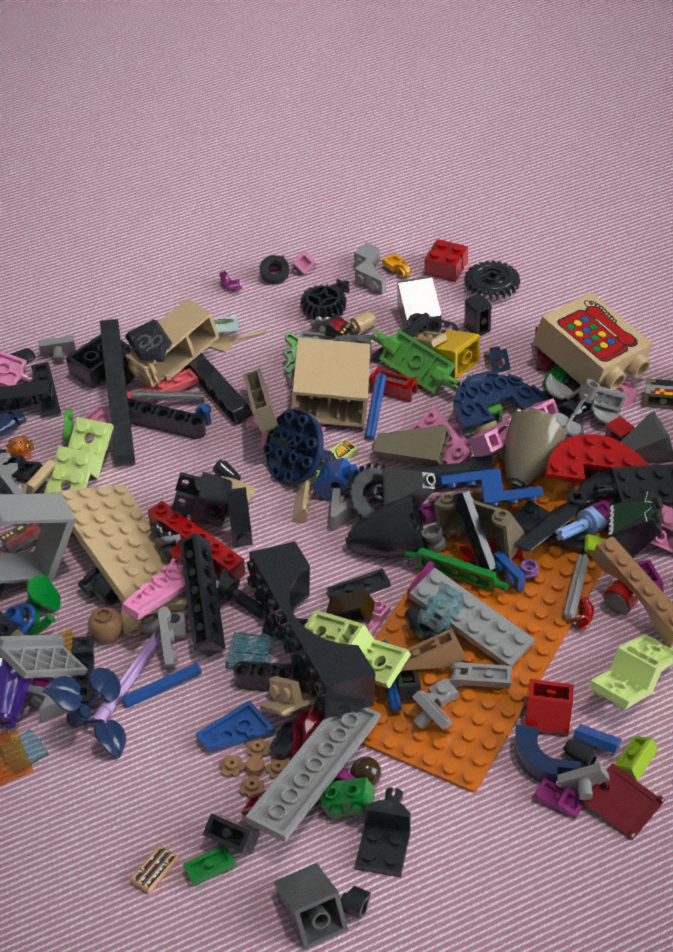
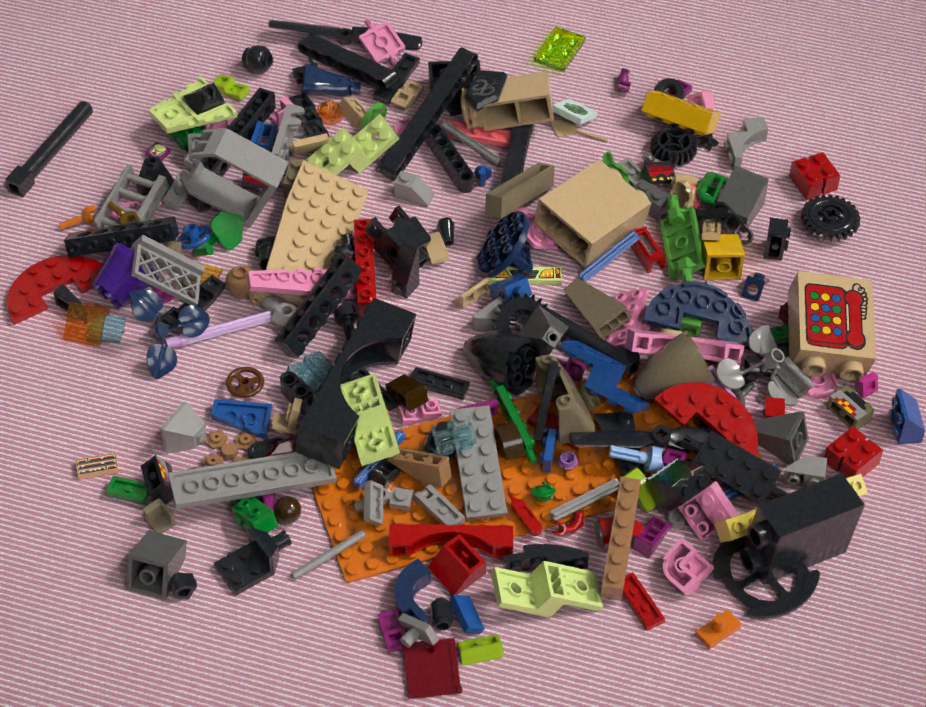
camera: 40 degrees right, 5 degrees up
(40, 436) = (353, 110): none -> tan slope
(57, 347) = (438, 49): light grey tile -> none
(68, 395) = (408, 95): none -> tan slope
(152, 290) = (559, 49): none -> clear neon green plate
(161, 460) = (412, 189): none -> light grey slope
(161, 685) = (234, 351): blue axle -> none
(167, 637) = (265, 319): light grey plate -> none
(205, 776) = (183, 430): none -> light grey slope
(206, 702) = (245, 385): none -> reddish brown piece
(264, 865) = (159, 516): none -> dark tan panel
(308, 273) = (680, 111): none -> yellow brick
(377, 323) = (686, 194): none -> tan hair
(395, 262) = (772, 152): light orange plate -> none
(398, 314) = (706, 187): none -> green piece
(434, 539) = (526, 387): light grey wheel -> none
(440, 779) = (328, 554): none -> light grey bar
(476, 583) = (509, 440): none -> dark brown brick
(542, 603) = (543, 492): none -> green hat
(549, 631) = (526, 516): none -> red piece
(554, 666) = (411, 538): none -> red arch
(601, 649) = (535, 554): none -> black slope
(650, 552) = (676, 519): none -> light grey tile
(654, 370) = (867, 384): none -> dark pink tile

